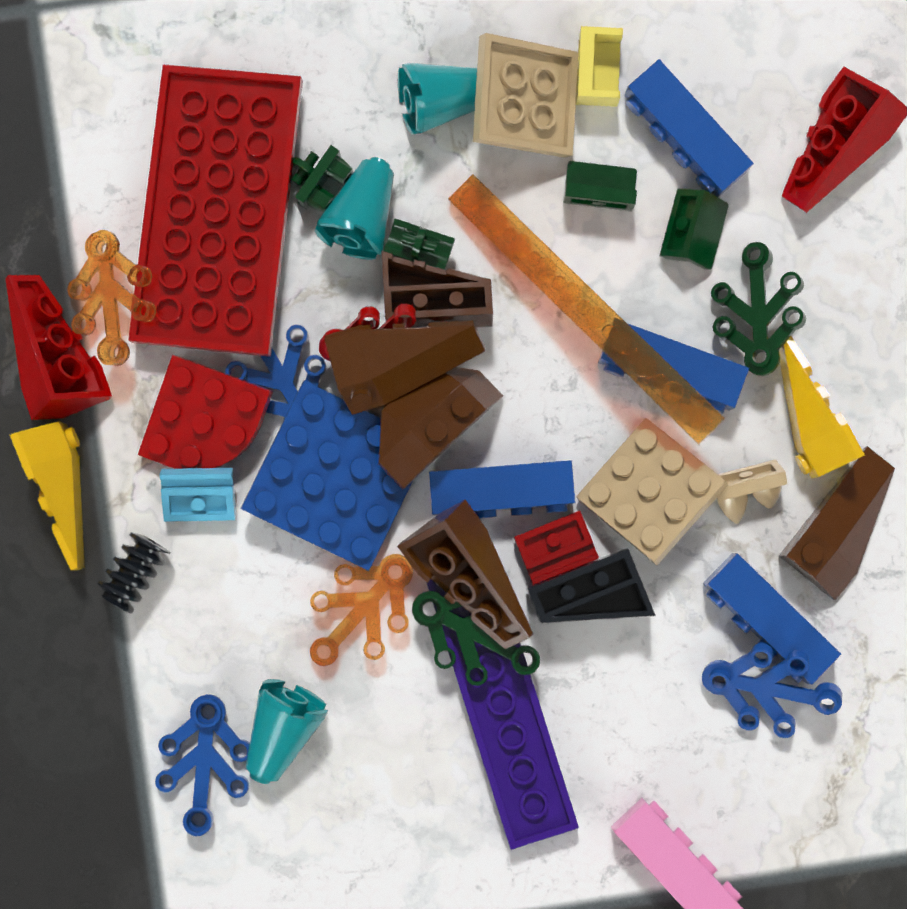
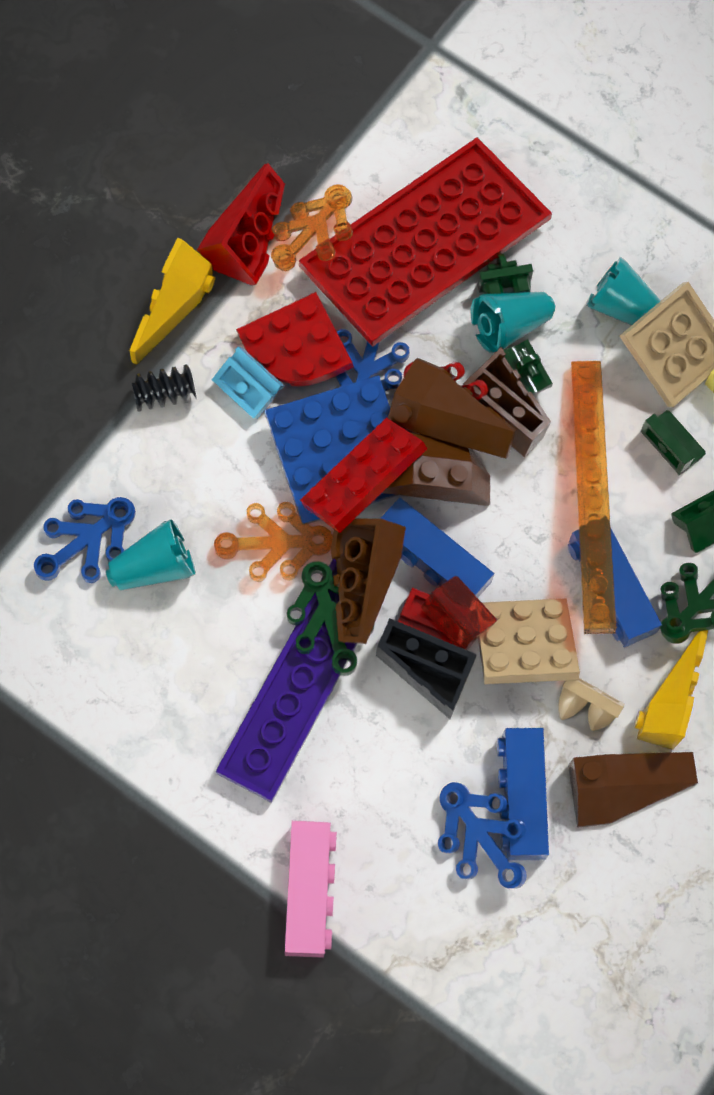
camera: 40 degrees right, 15 degrees down
(383, 487) = (363, 474): none -> red plate
(577, 524) = (458, 613): none -> clear red panel

